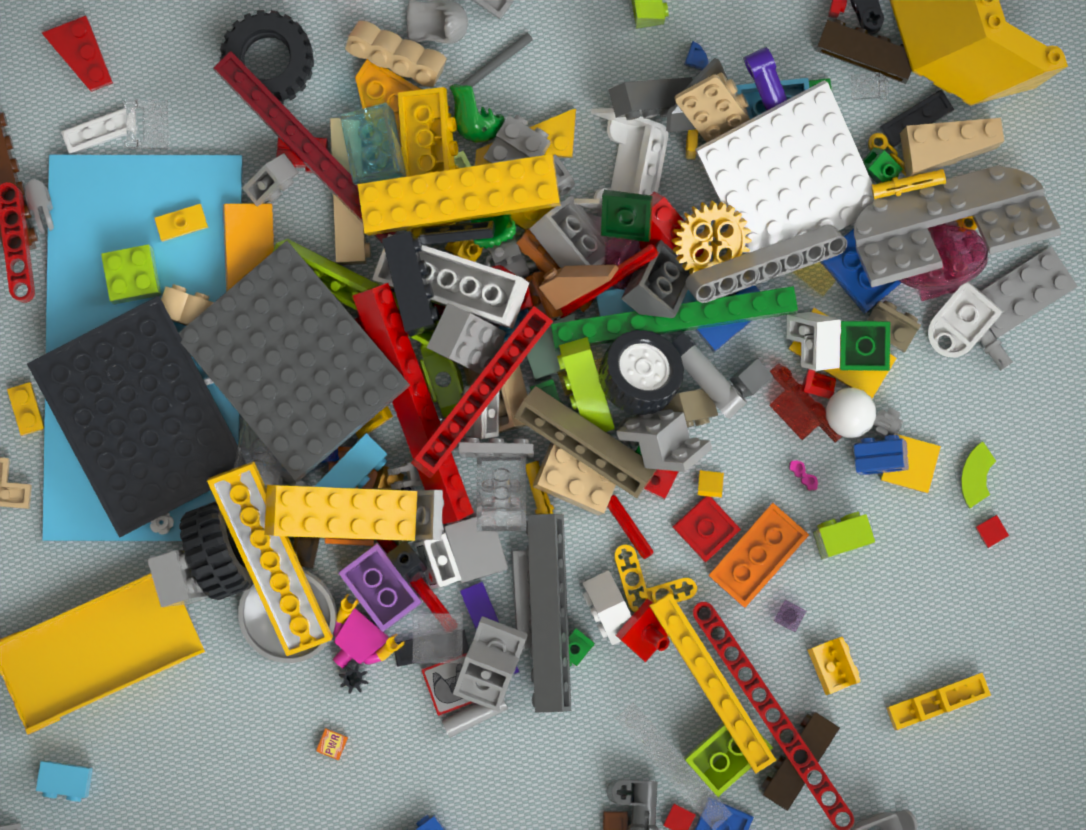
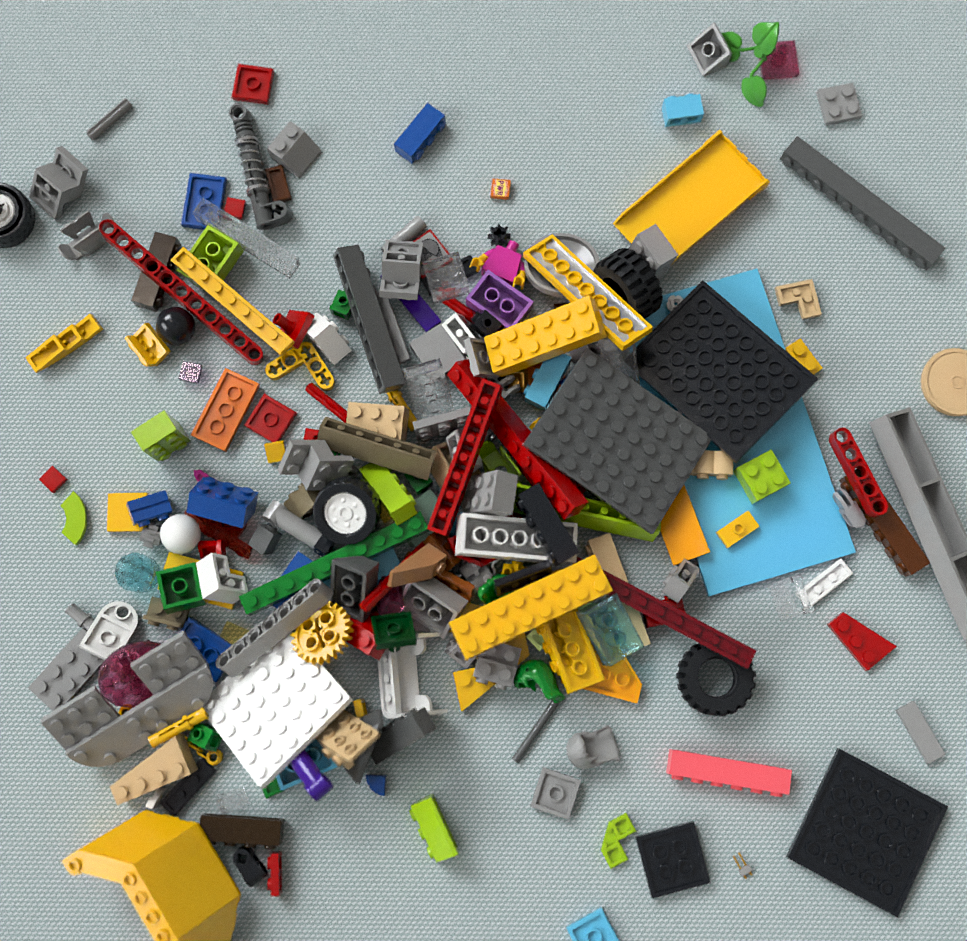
camera: 160 degrees right, 5 degrees down
(400, 55) = (621, 712): tan brick -> none
(790, 435) = (222, 502): none -> blue brick
(792, 679) = (175, 326): none -> black piece
(914, 382) = (137, 572): none -> clear light blue brick
(959, 113) = (153, 802): none -> white tile

